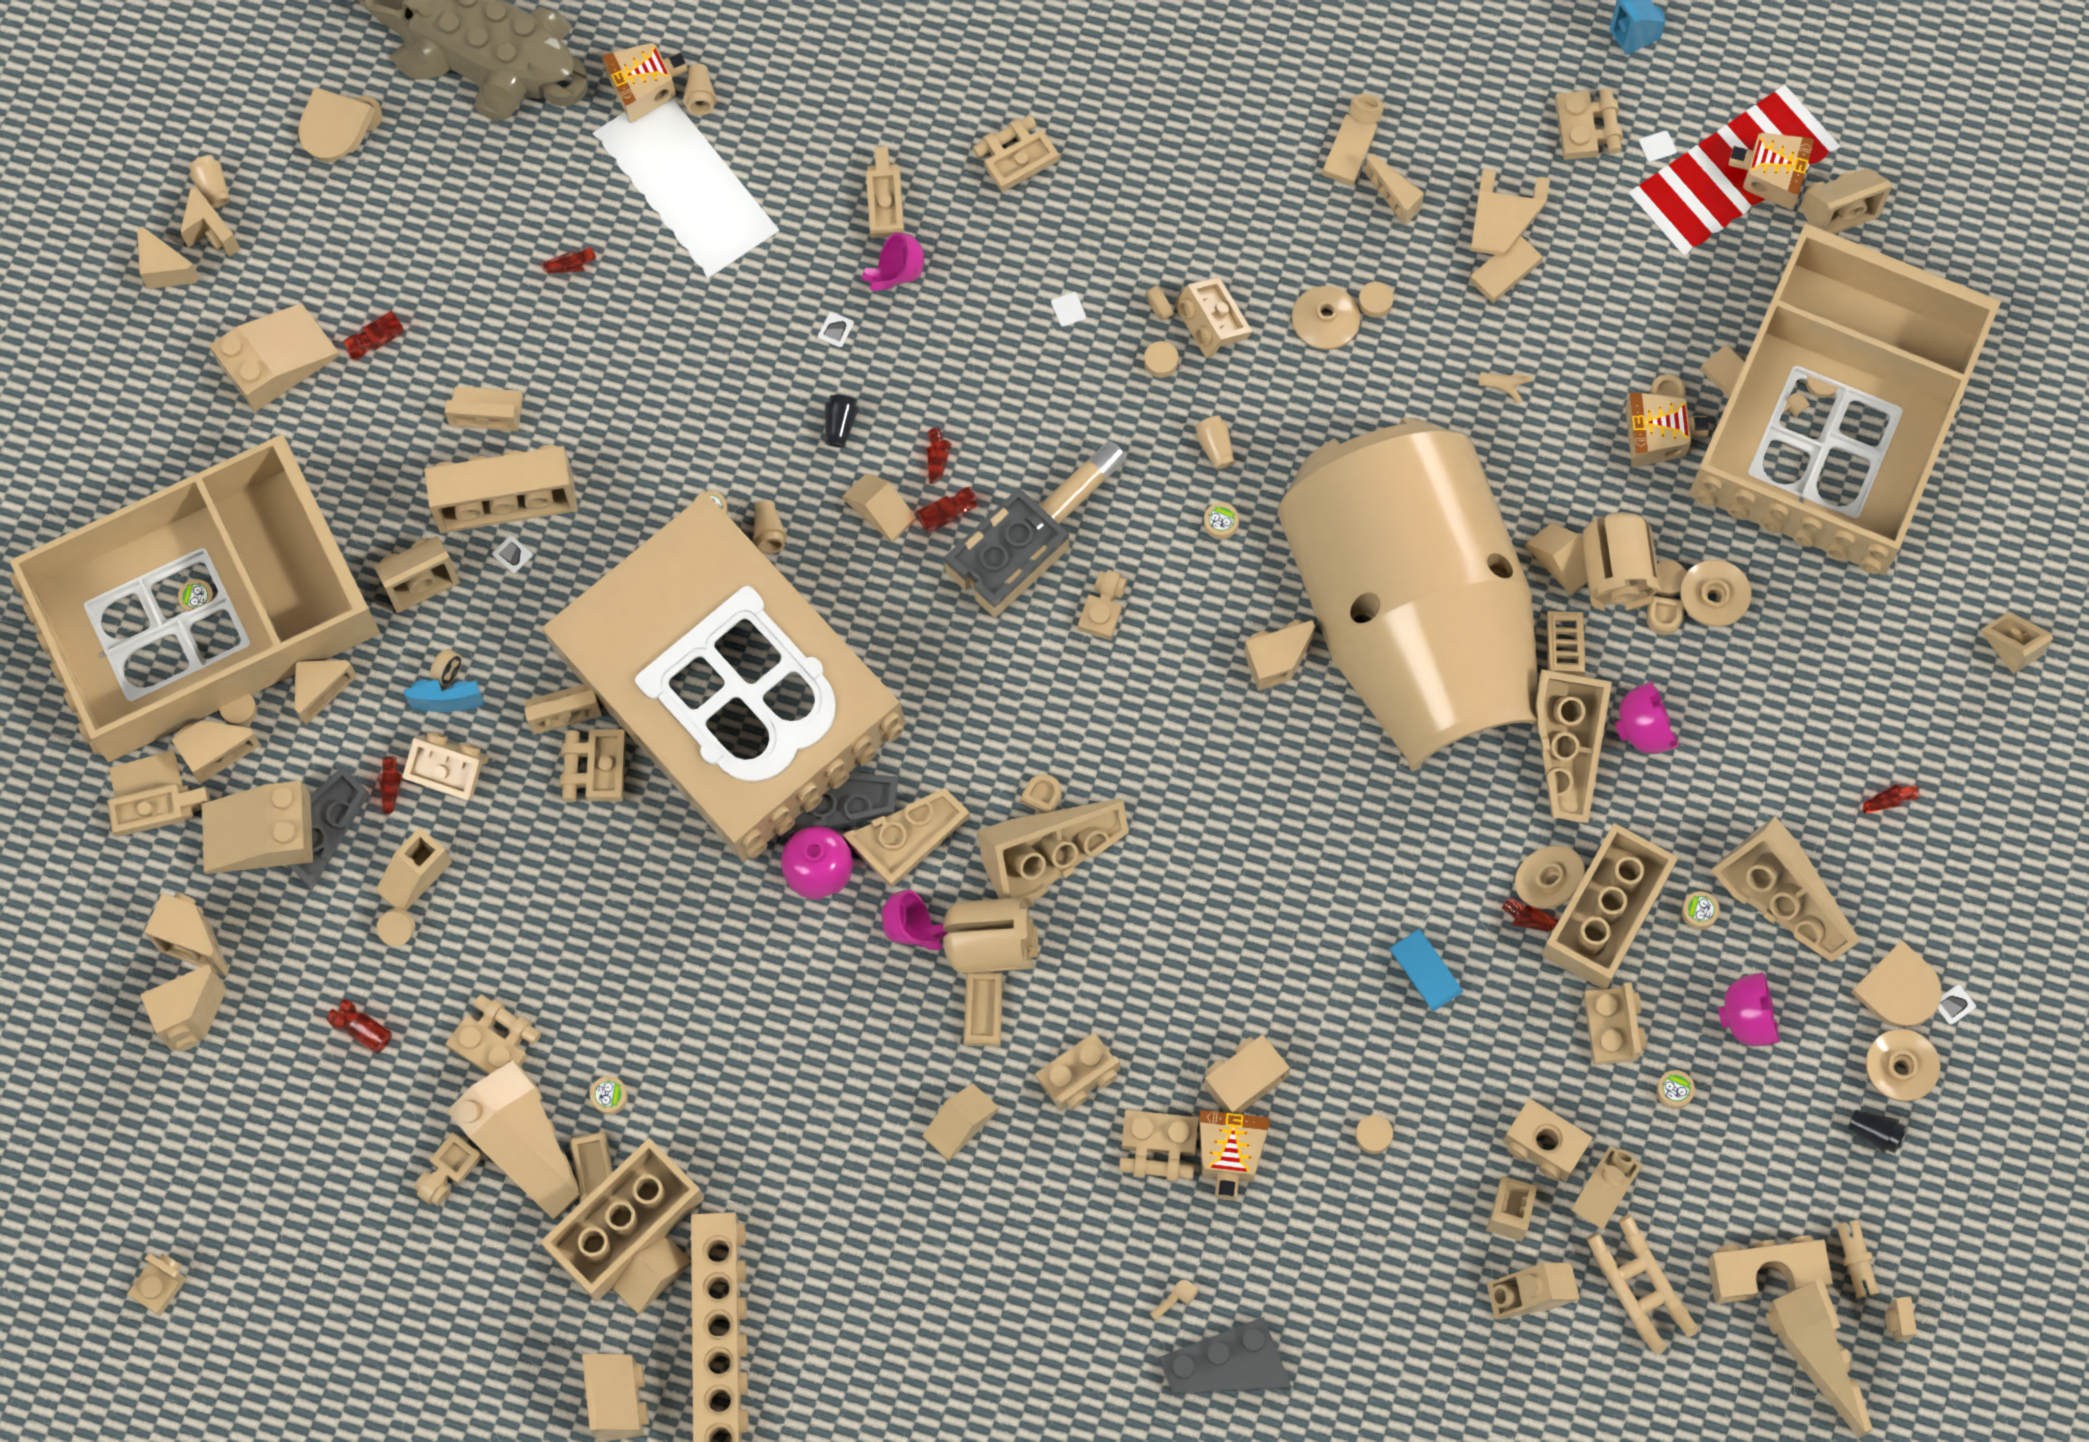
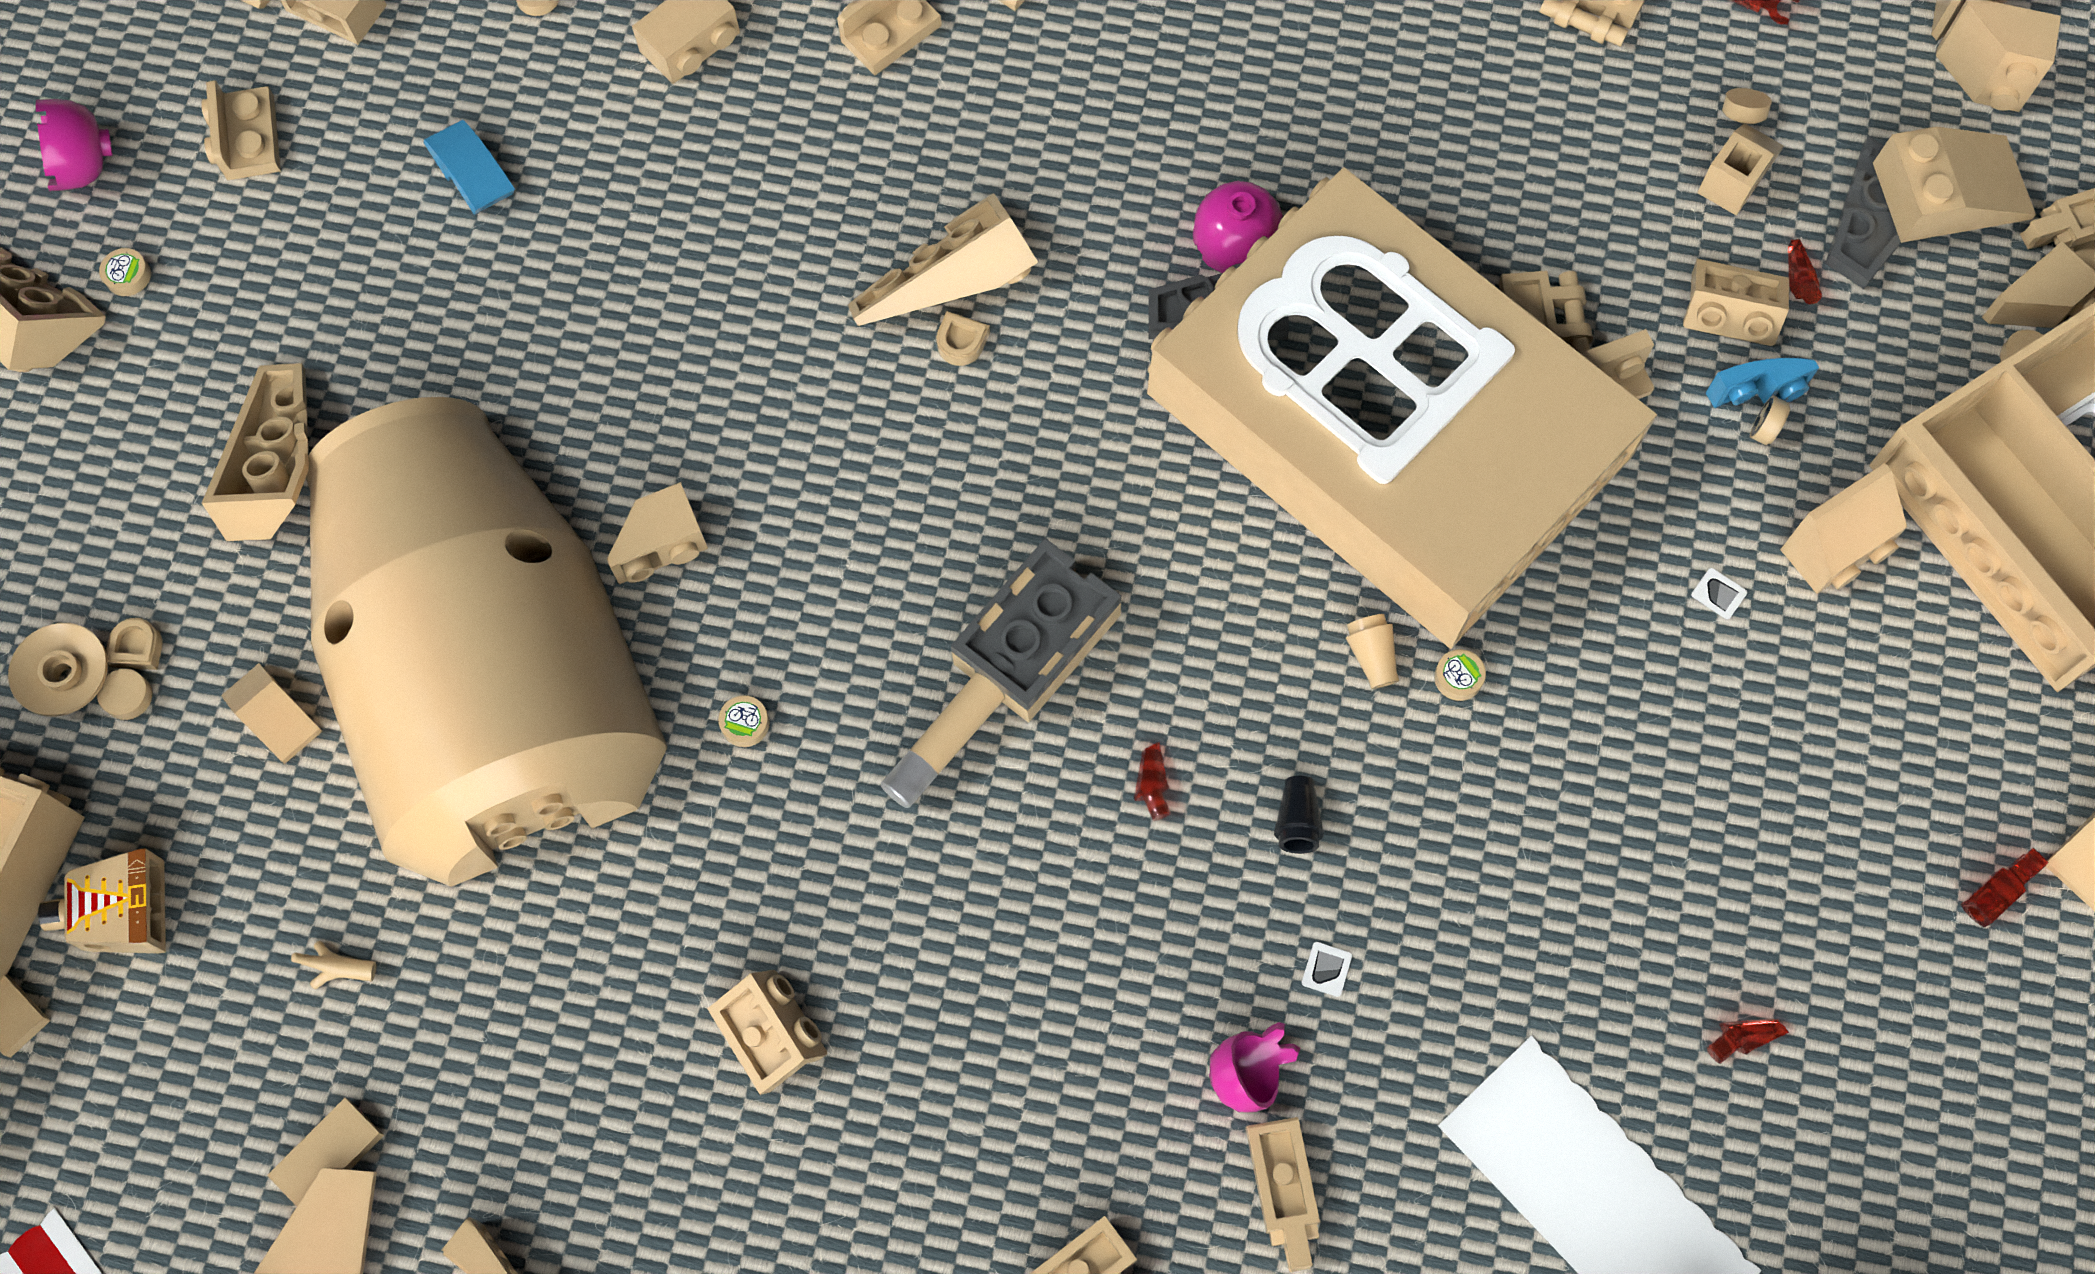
camera: 175 degrees right, 0 degrees up
(319, 684) = (1933, 380): tan slope -> none
(484, 408) = (1812, 792): tan panel -> none
(501, 489) = (1760, 650): tan brick -> none
(880, 506) = (1227, 699): tan slope -> none
(905, 838) = (1129, 262): tan wing -> none
(909, 922) = (1111, 159): dark pink piece -> none
(946, 509) = (1130, 698): clear red bar -> none
(983, 1009) = (1010, 86): tan tile -> none
(990, 935) = (1008, 145): tan cylinder -> none
(1068, 309) = (985, 1033): white sticker -> none
(1102, 614) = (900, 577): tan plate -> none
(1159, 303) = (848, 1041): tan tile -> none
(1161, 359) = (841, 958): tan tile -> none
(1215, 441) = (755, 832): tan cone -> none
(1326, 331) = (617, 1071): tan dish -> none
(1375, 299) = (524, 1084): tan tile -> none
(1529, 916) = (342, 245): clear red bar -> none
(1548, 866) = (321, 263): tan dish -> none
(1578, 667) = (255, 567): tan slope -> none
(1609, 906) = (232, 247): tan brick -> none
(1620, 561) = (181, 686): tan cylinder -> none
(1645, 721) = (167, 480): dark pink cylinder -> none
(1668, 386) = (99, 974): tan tile -> none
(1675, 1089) = (175, 70): tile -> none

